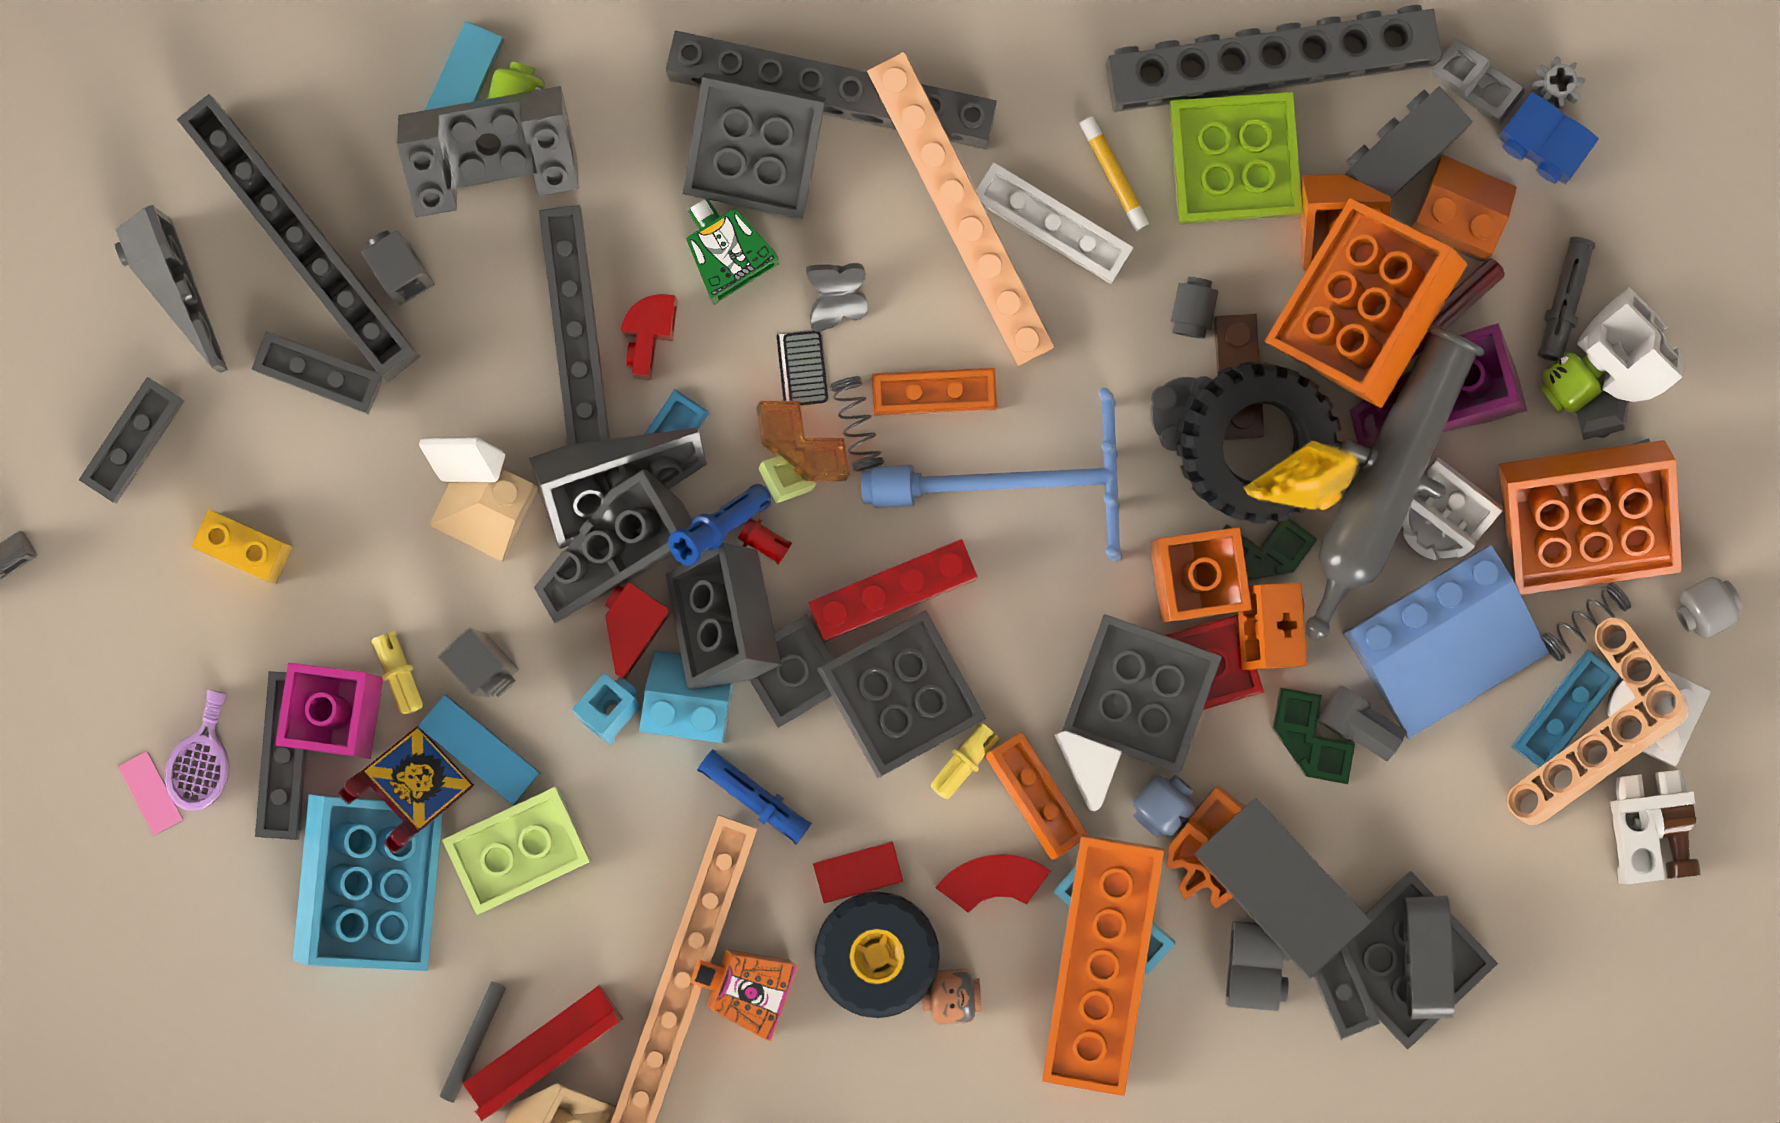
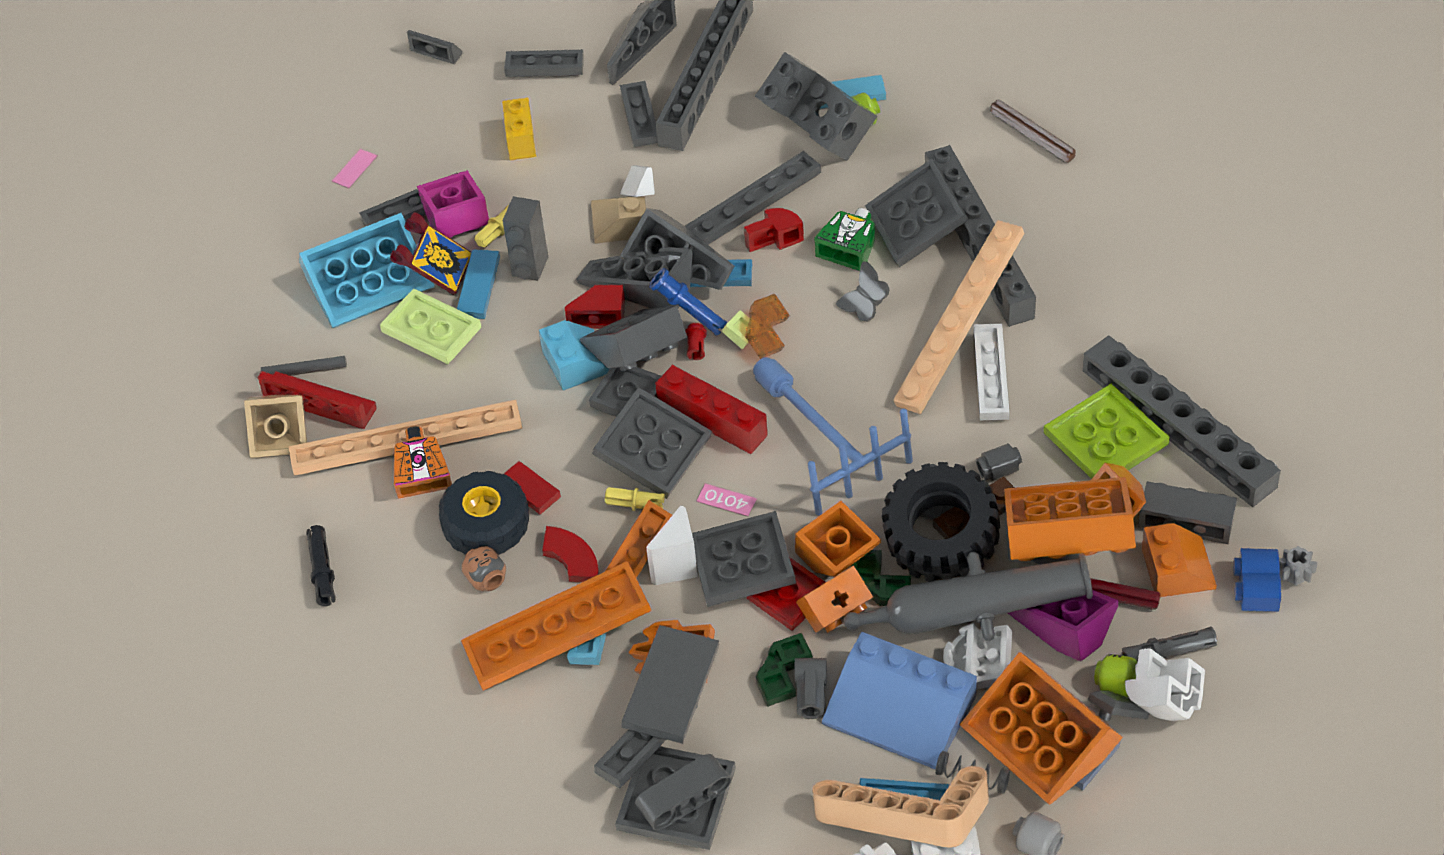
camera: 60 degrees right, 35 degrees down
(211, 717) = (401, 170): lavender piece -> none
(397, 266) = (721, 106): dark grey brick -> none
(593, 707) = (541, 315): medium azure brick -> none
(755, 797) = (538, 422): blue pin -> none
(802, 367) = (811, 311): sticker -> none
(870, 461) = (813, 332): dark grey piece -> none
(934, 391) = (846, 374): orange tile -> none
(1026, 650) = (726, 499): none -> bright pink sticker
(1114, 173) = (1046, 388): yellow bar -> none
(1164, 805) = (681, 605): sand blue head -> none
(1255, 969) = (603, 712): dark grey brick -> none
(1306, 478) = (932, 517): yellow wedge -> none
(1477, 82) = (1261, 525): light grey slope -> none

